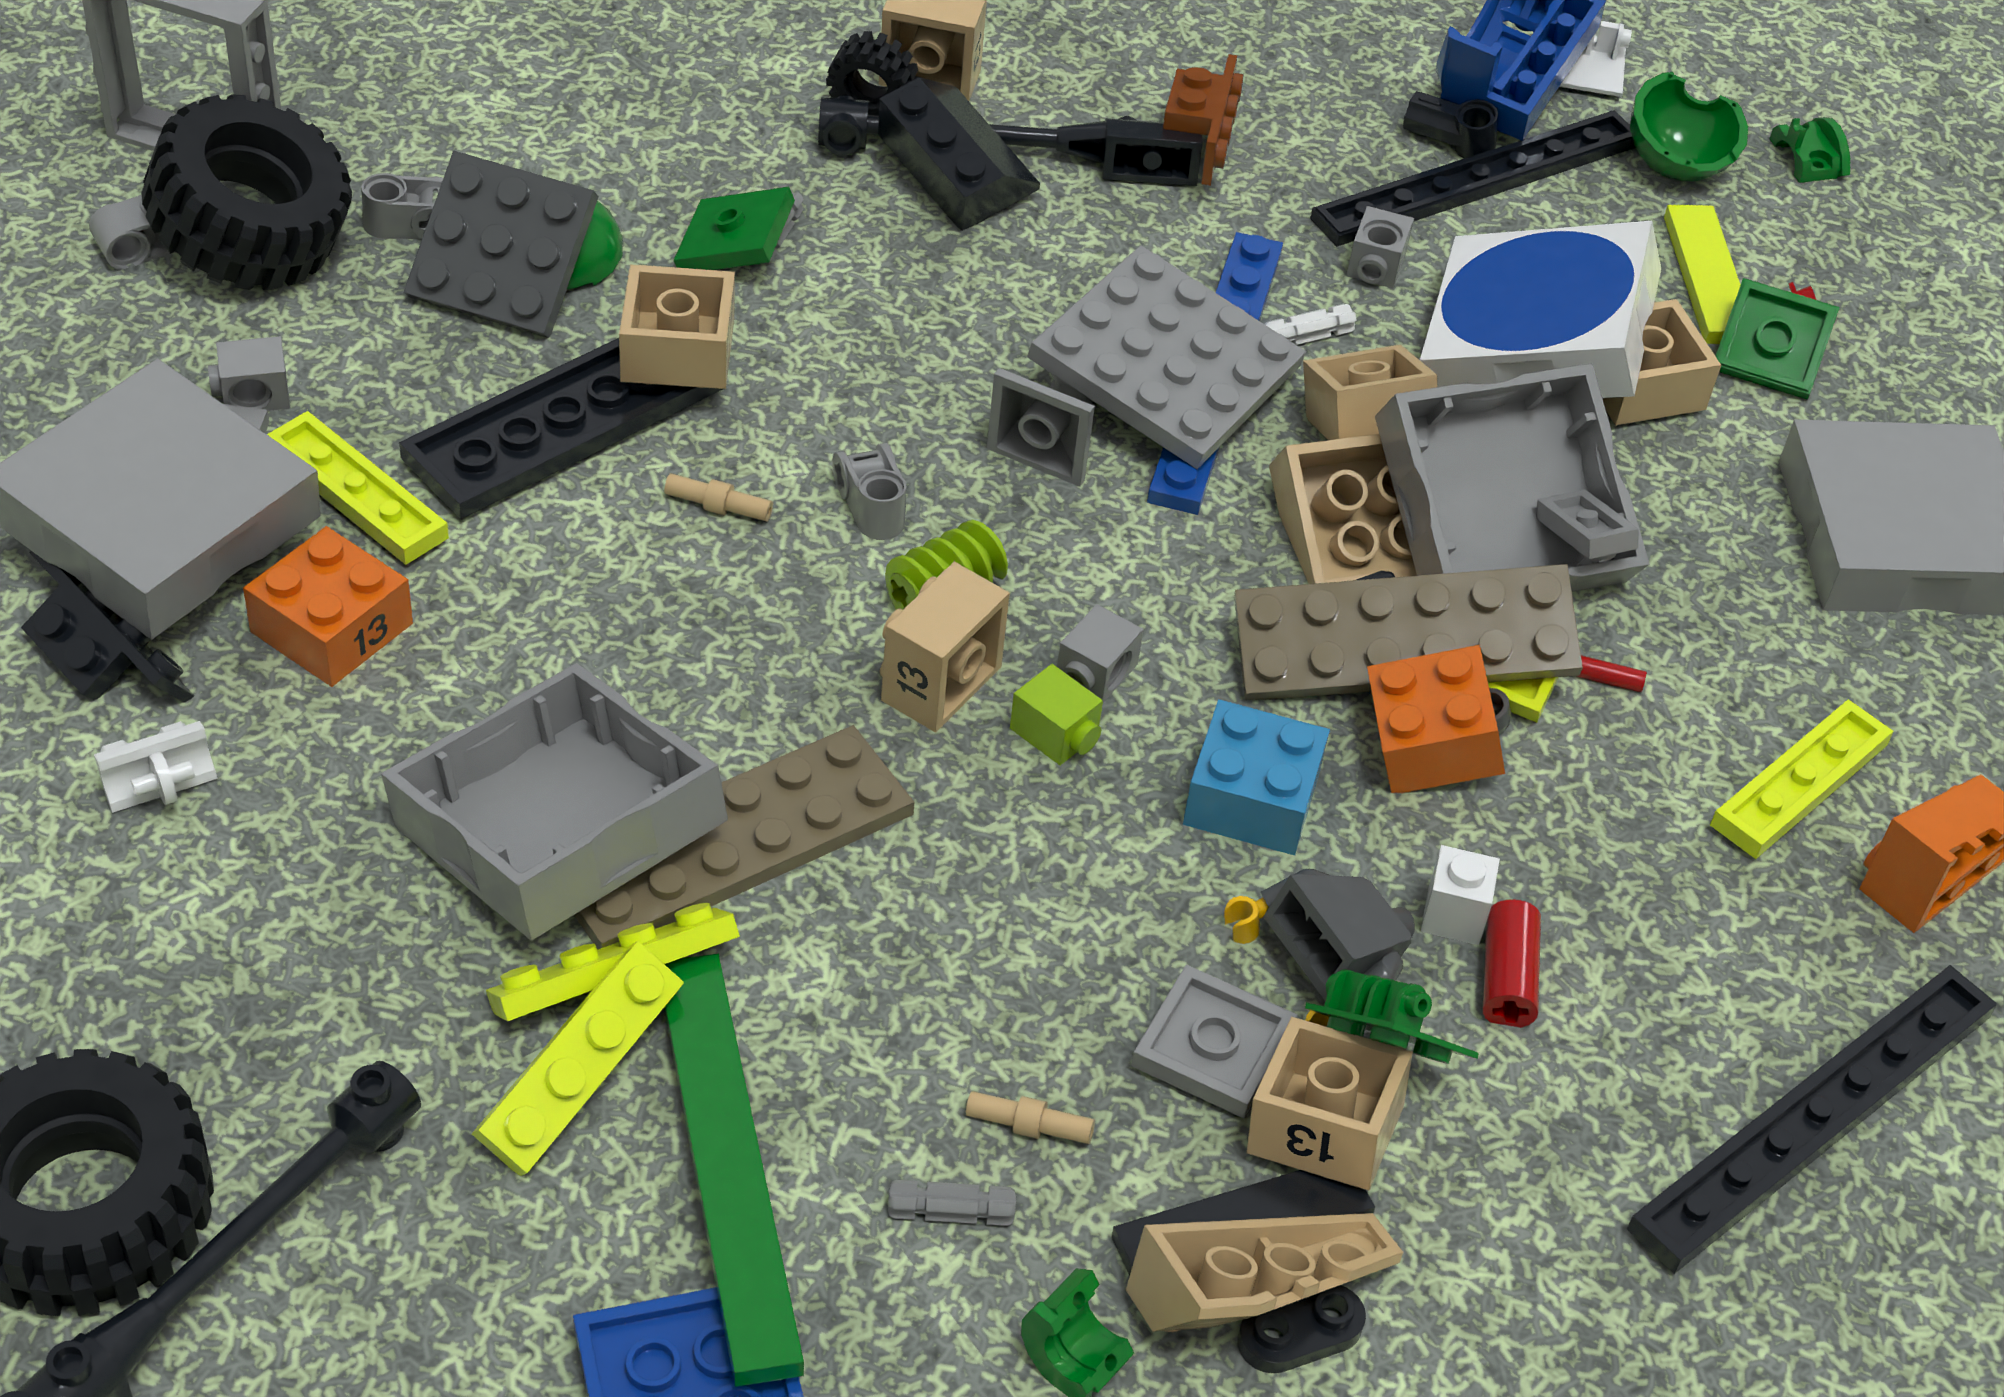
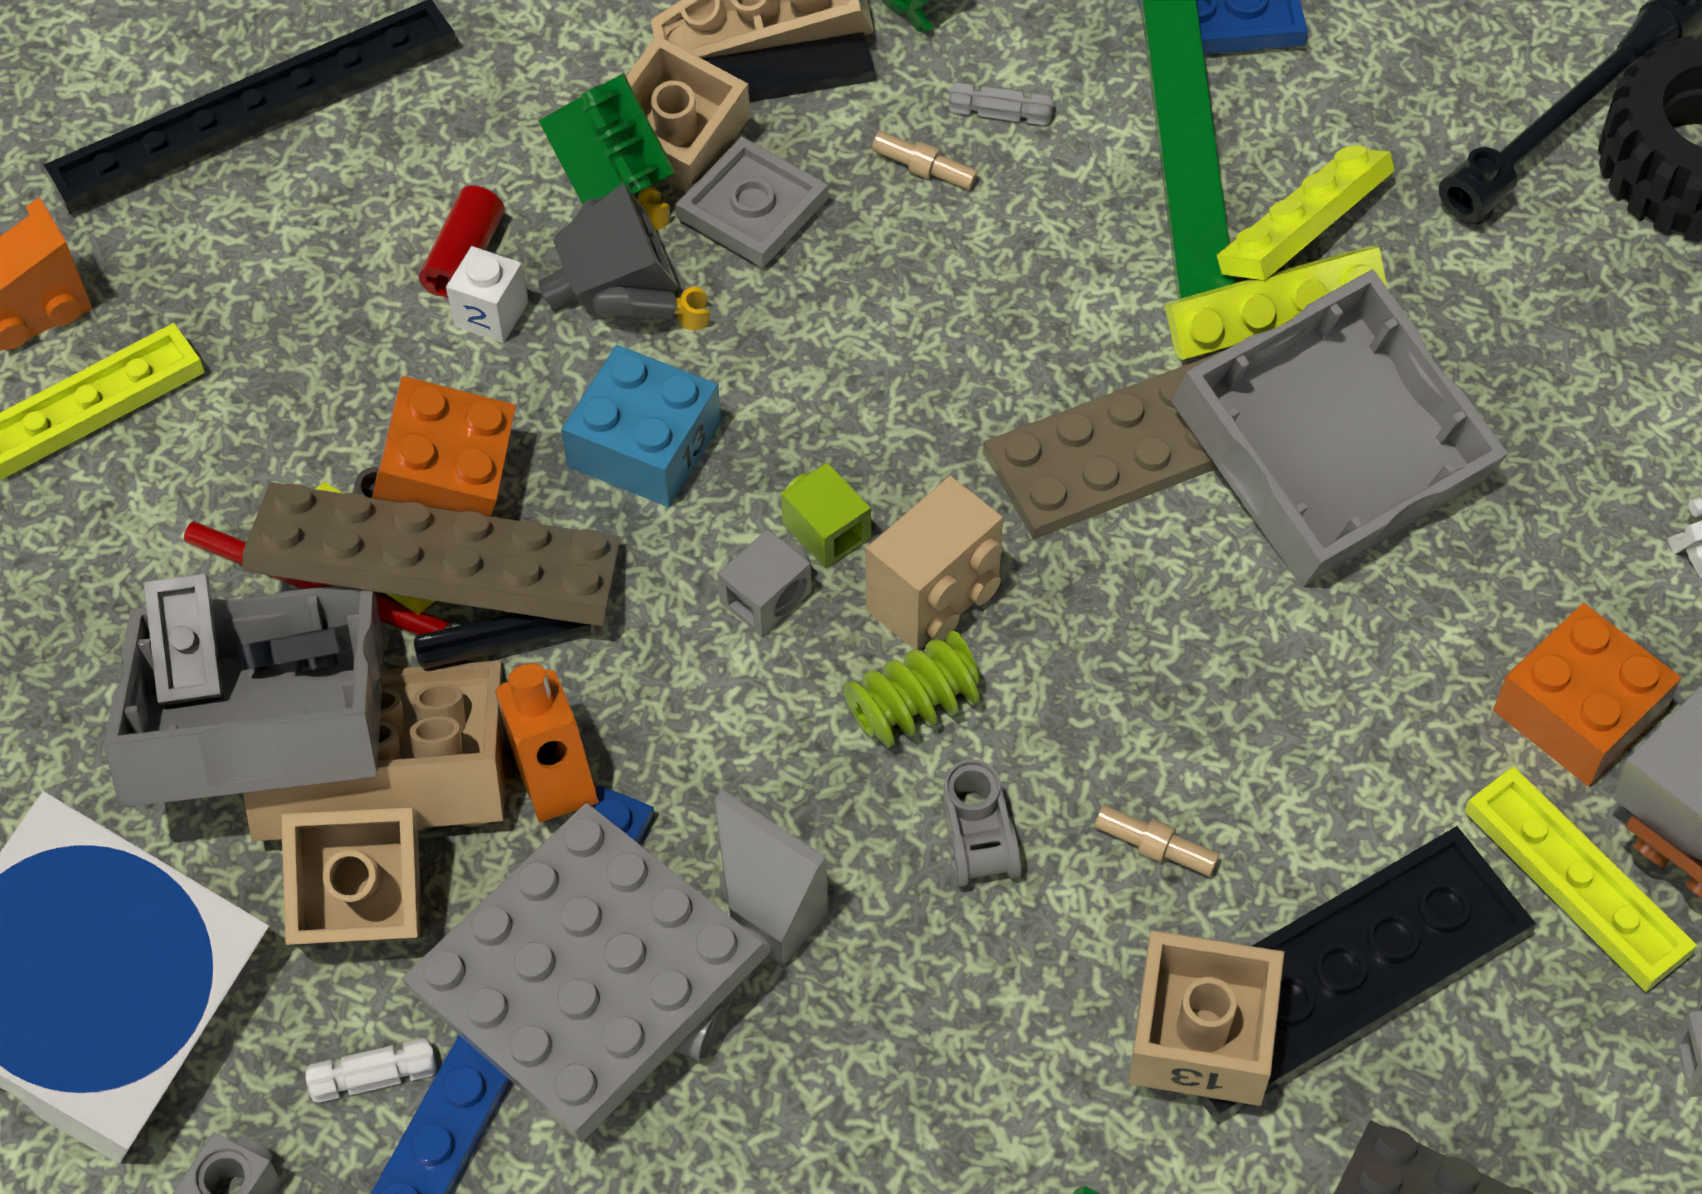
camera: 165 degrees left, 10 degrees up
(1254, 495) = (534, 714): none -> orange torso
(1489, 546) = (311, 648): none -> black plate

